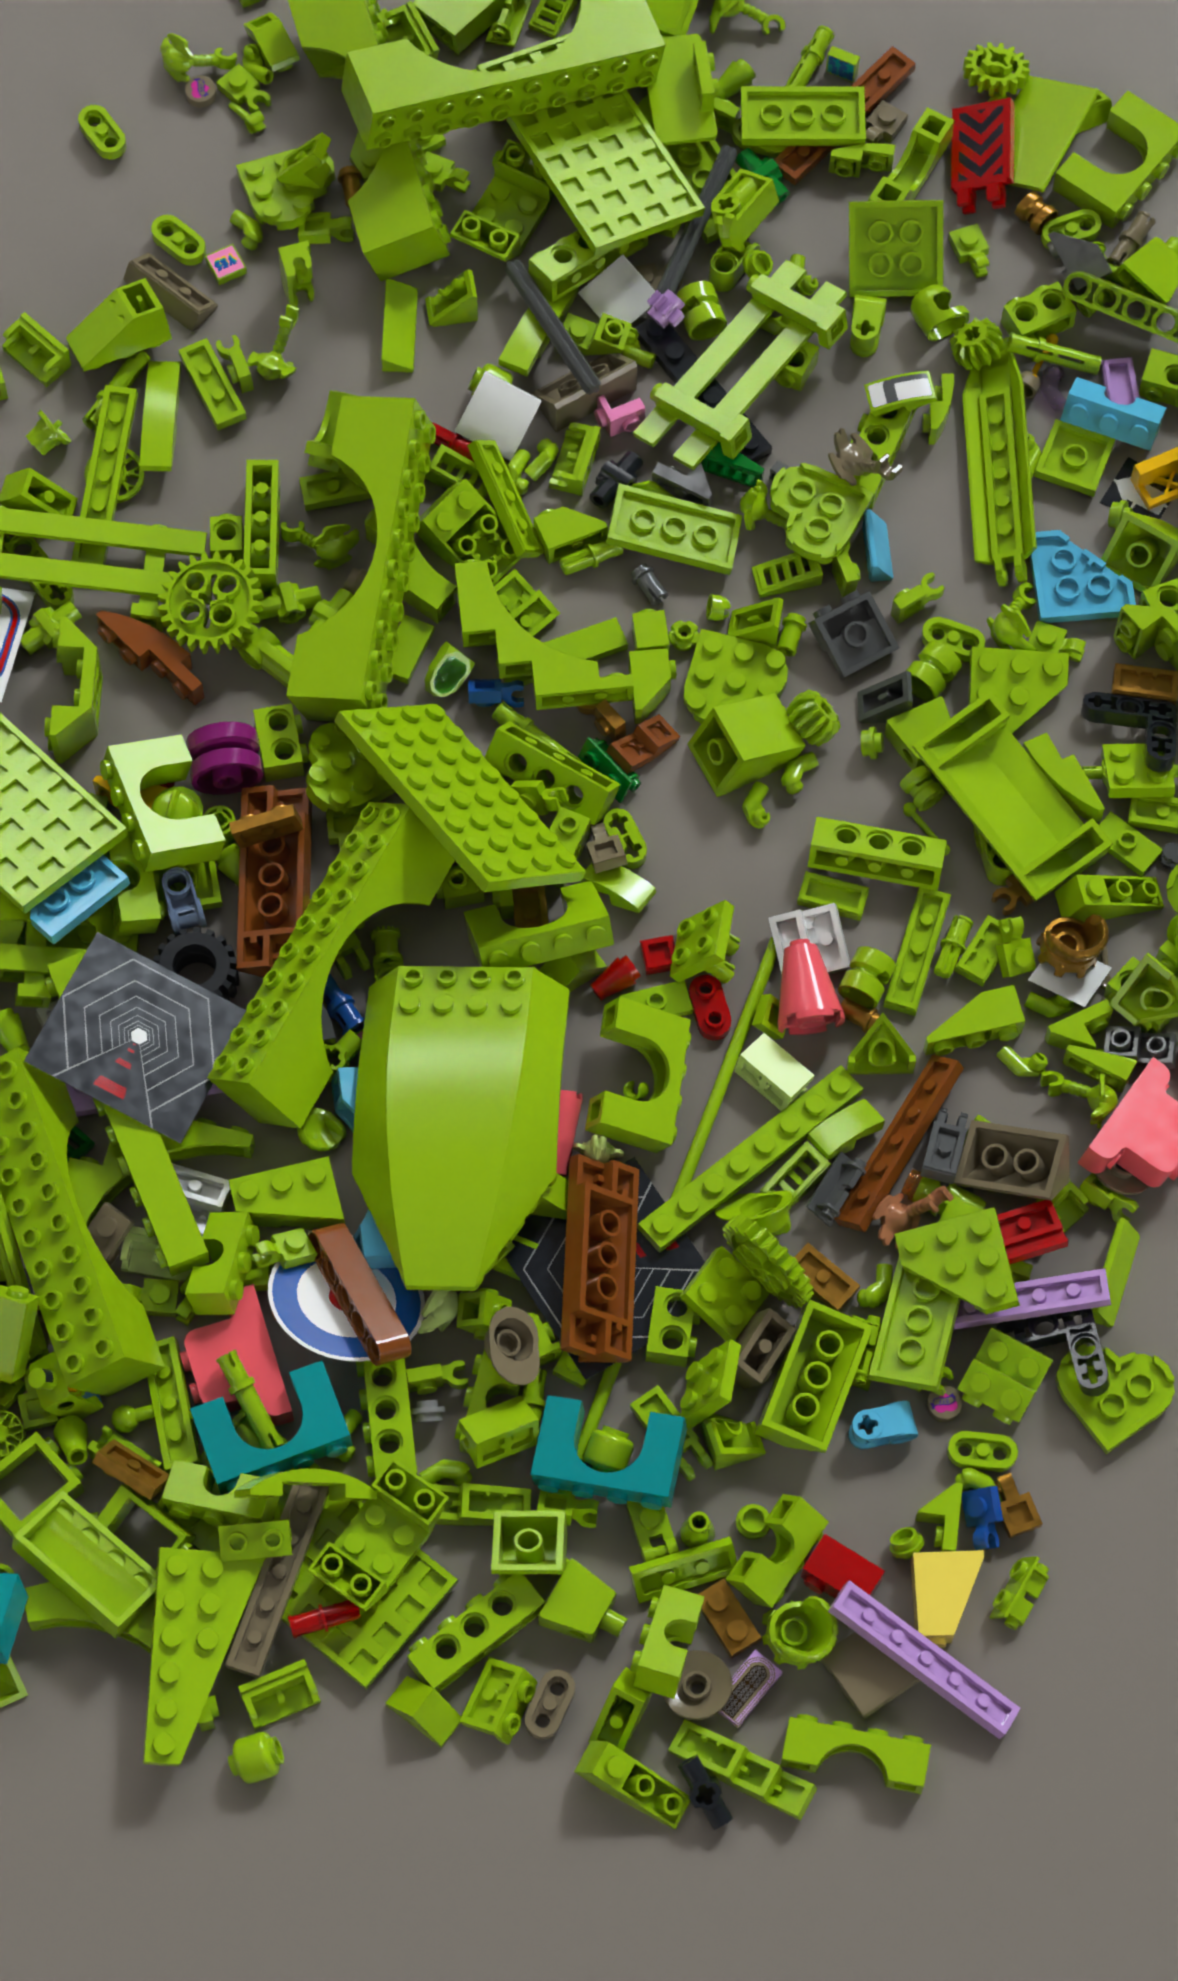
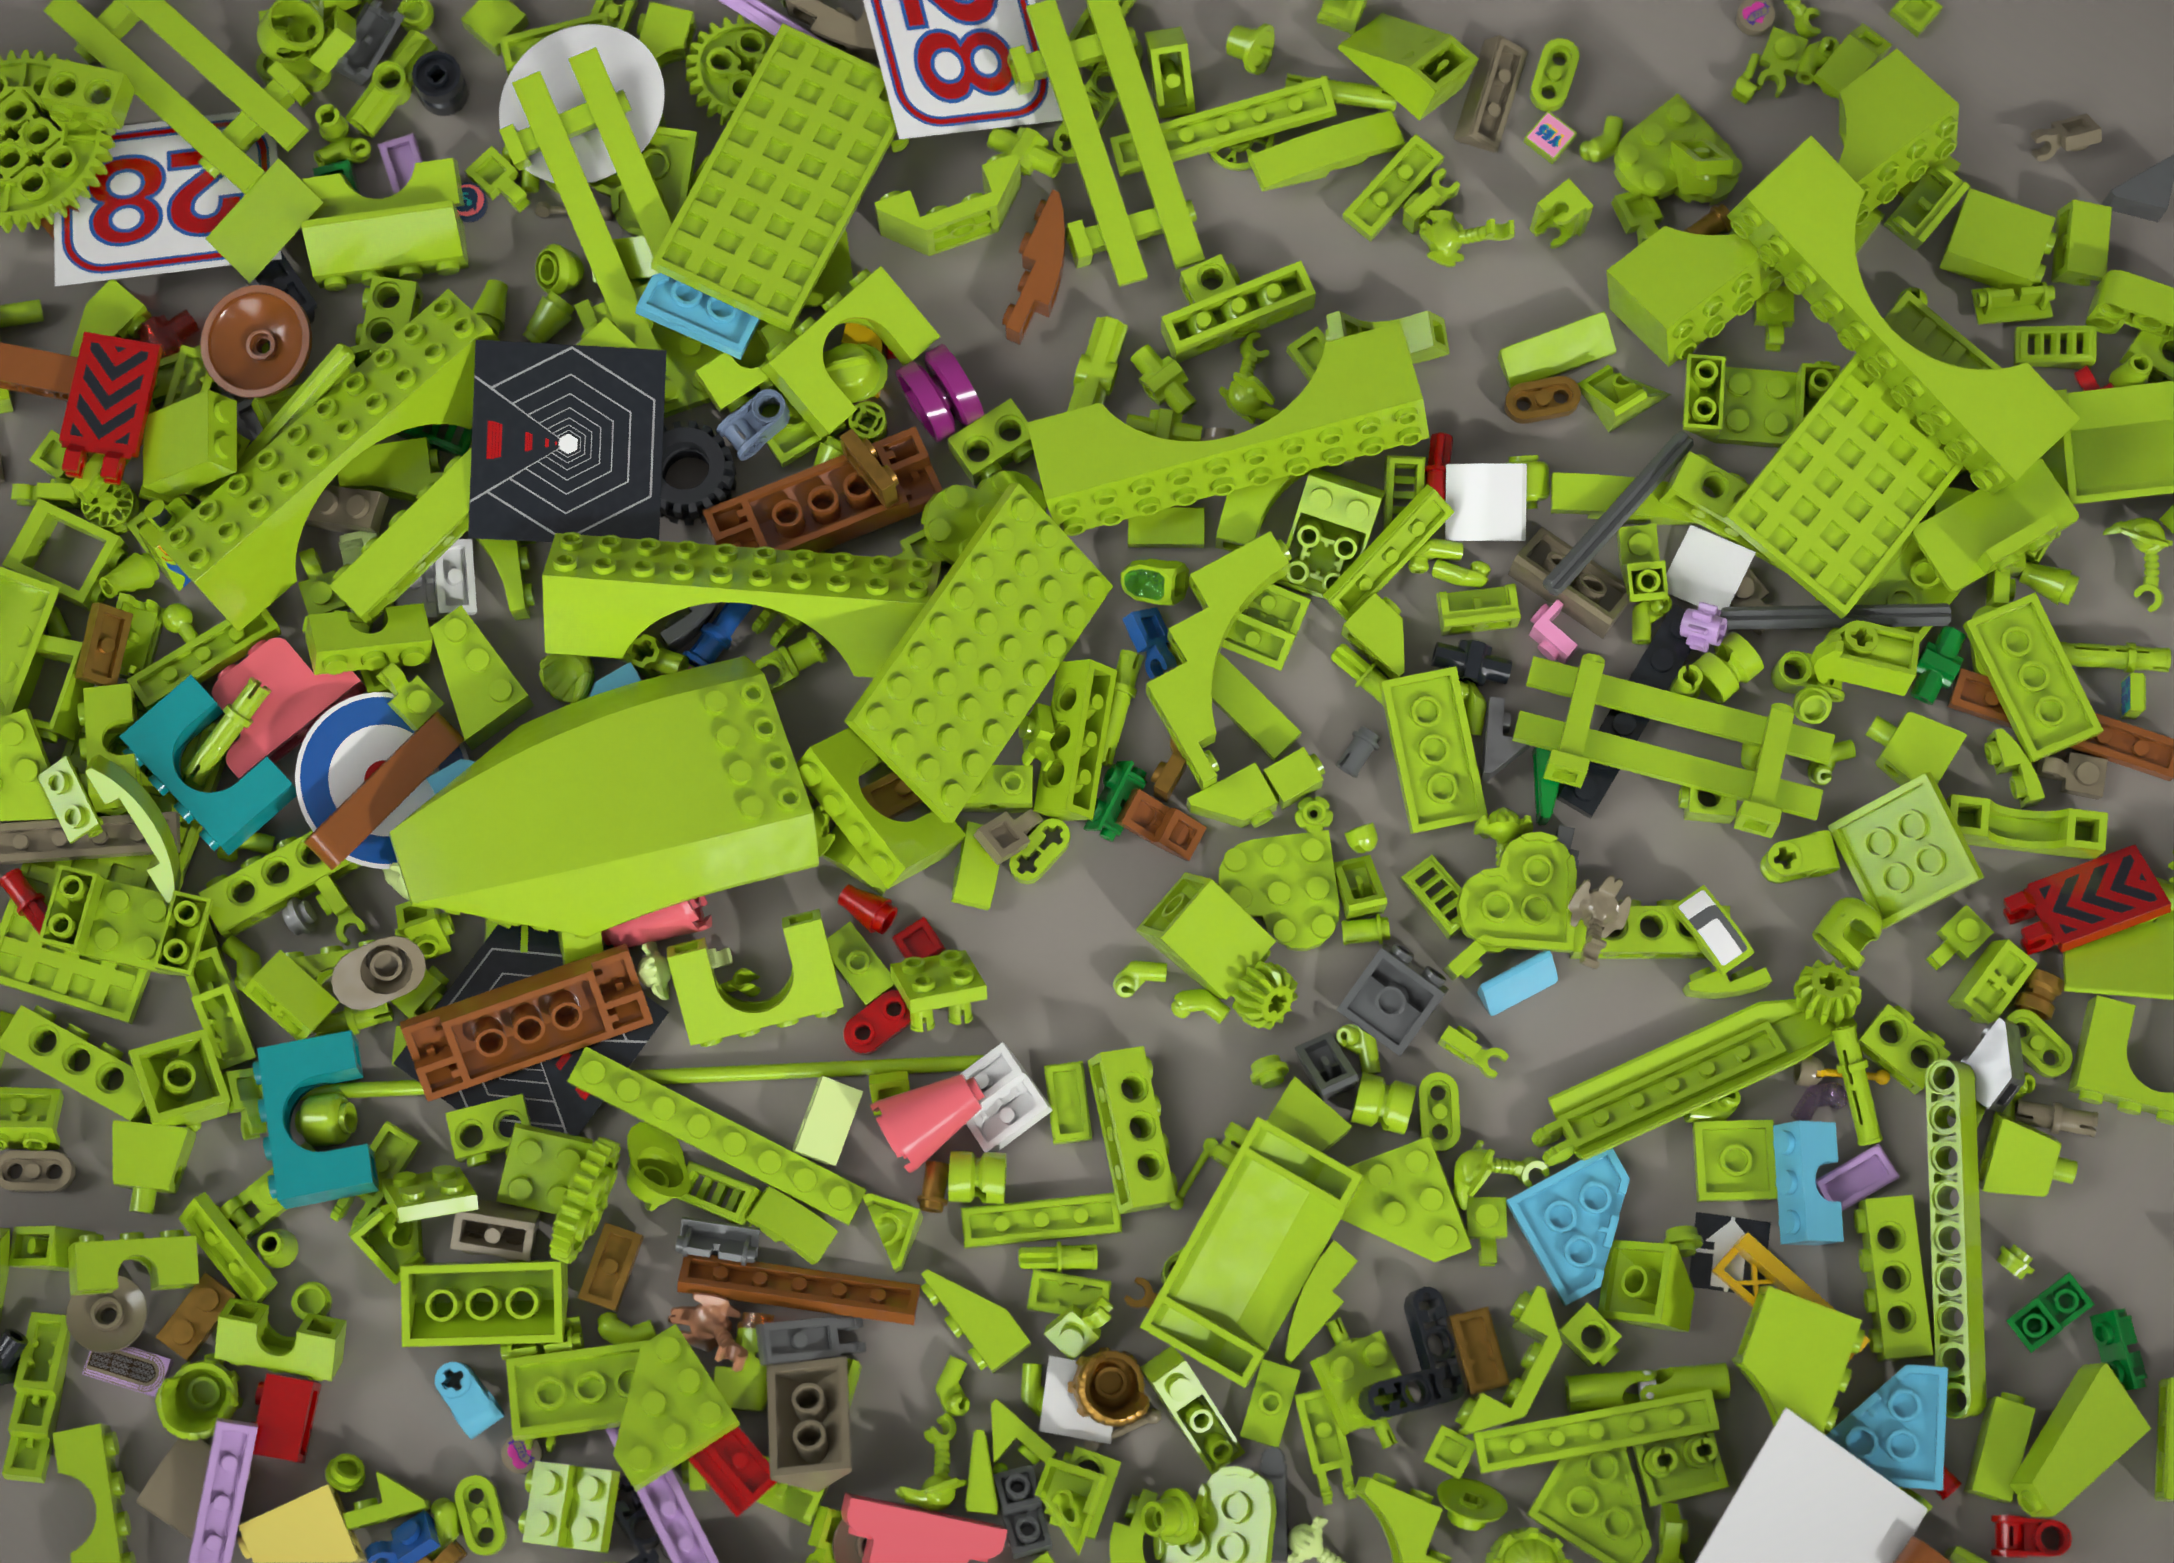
camera: 70 degrees right, 10 degrees up
(182, 601) = (1119, 328): lime gear -> none
(432, 353) = (1540, 399): none -> pearl gold plate
(700, 338) = (1688, 681): none -> lime pin
(818, 216) = (1914, 746): none -> lime torso
(878, 672) = (1362, 1044): none -> lime arm
(1014, 238) = (1993, 981): none -> lime hinge

